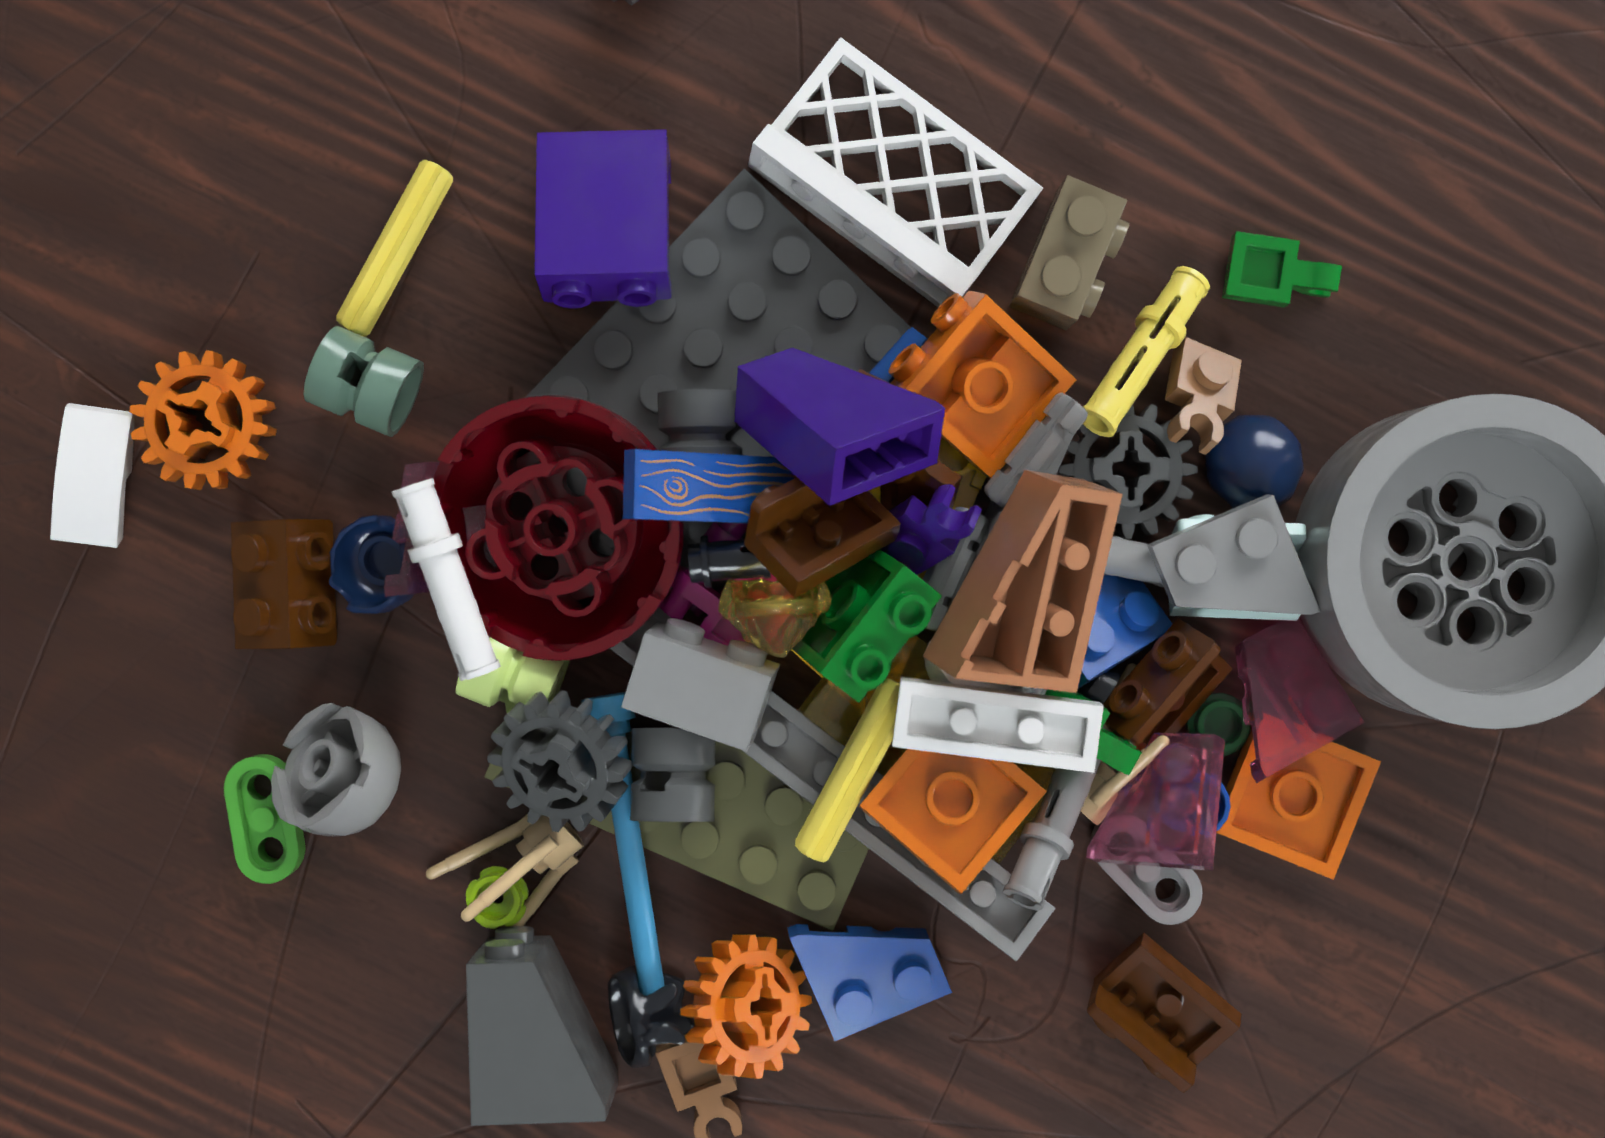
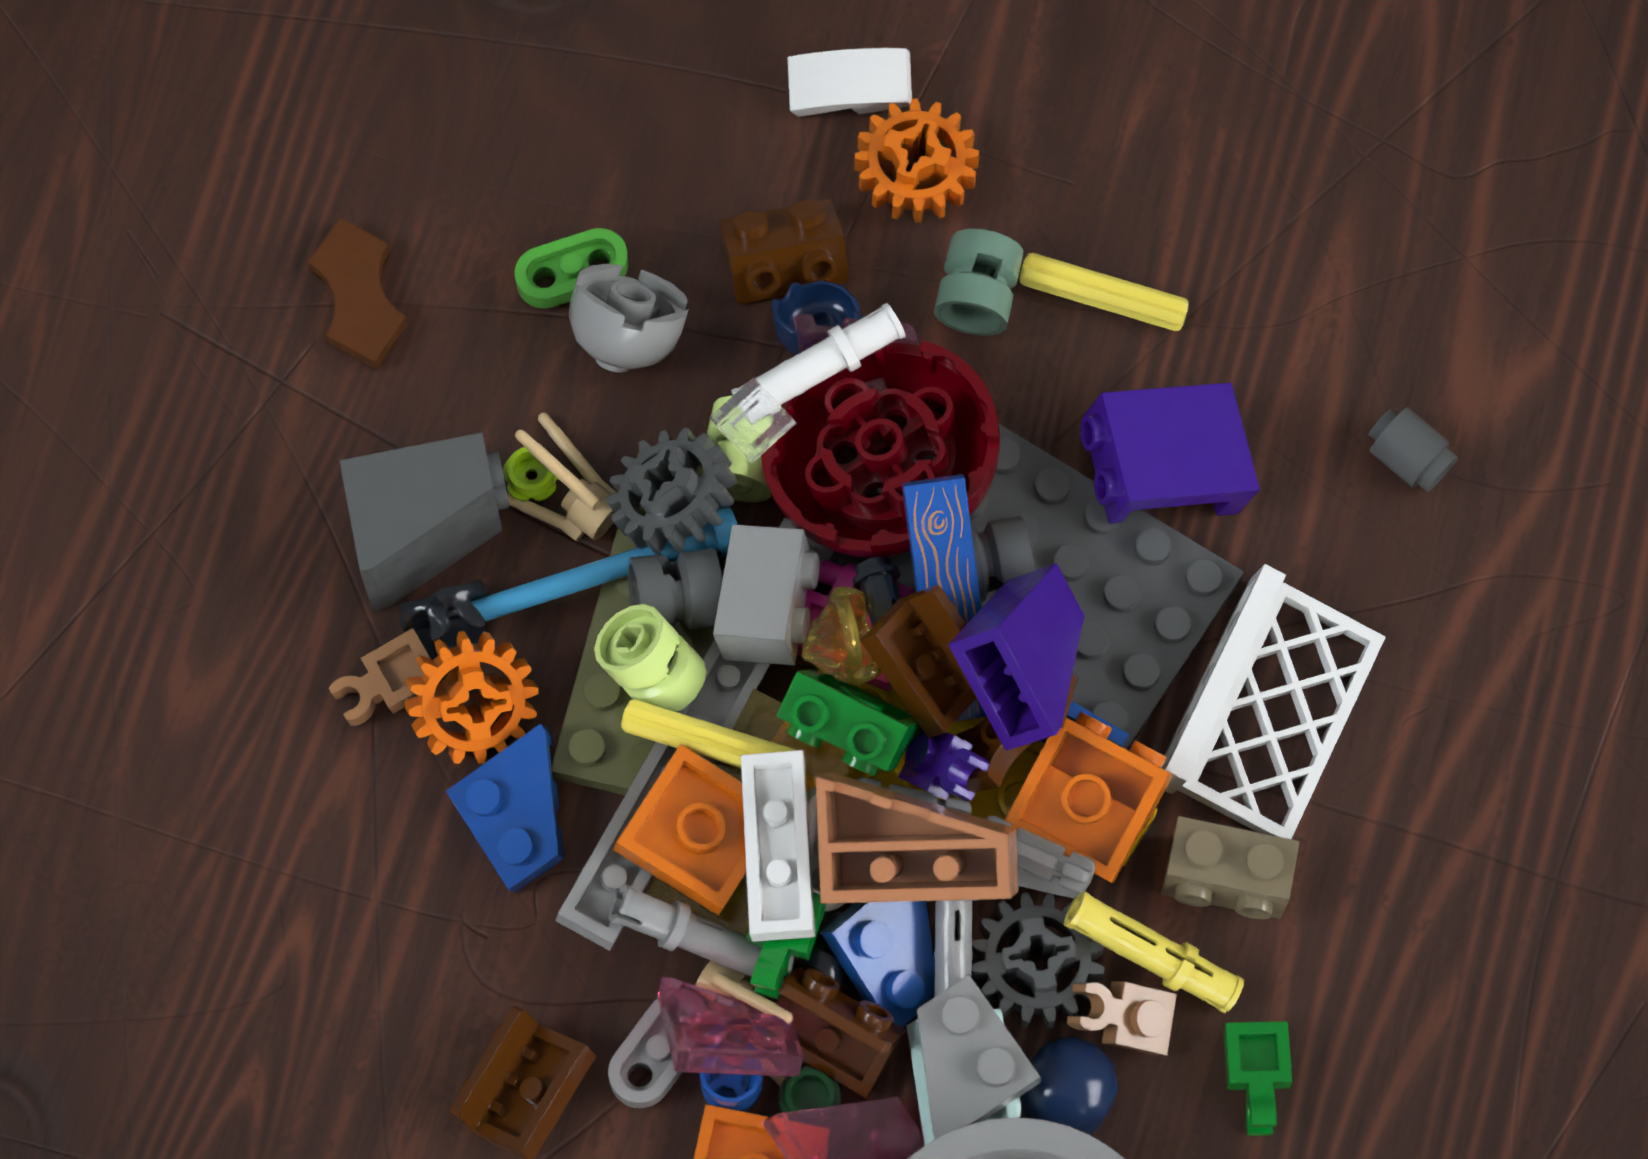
camera: 80 degrees right, 20 degrees down
(225, 1051) = (352, 268): none -> reddish brown tile
(502, 664) = (752, 420): none -> clear tile
(754, 819) = (650, 658): none -> yellowish green wheel

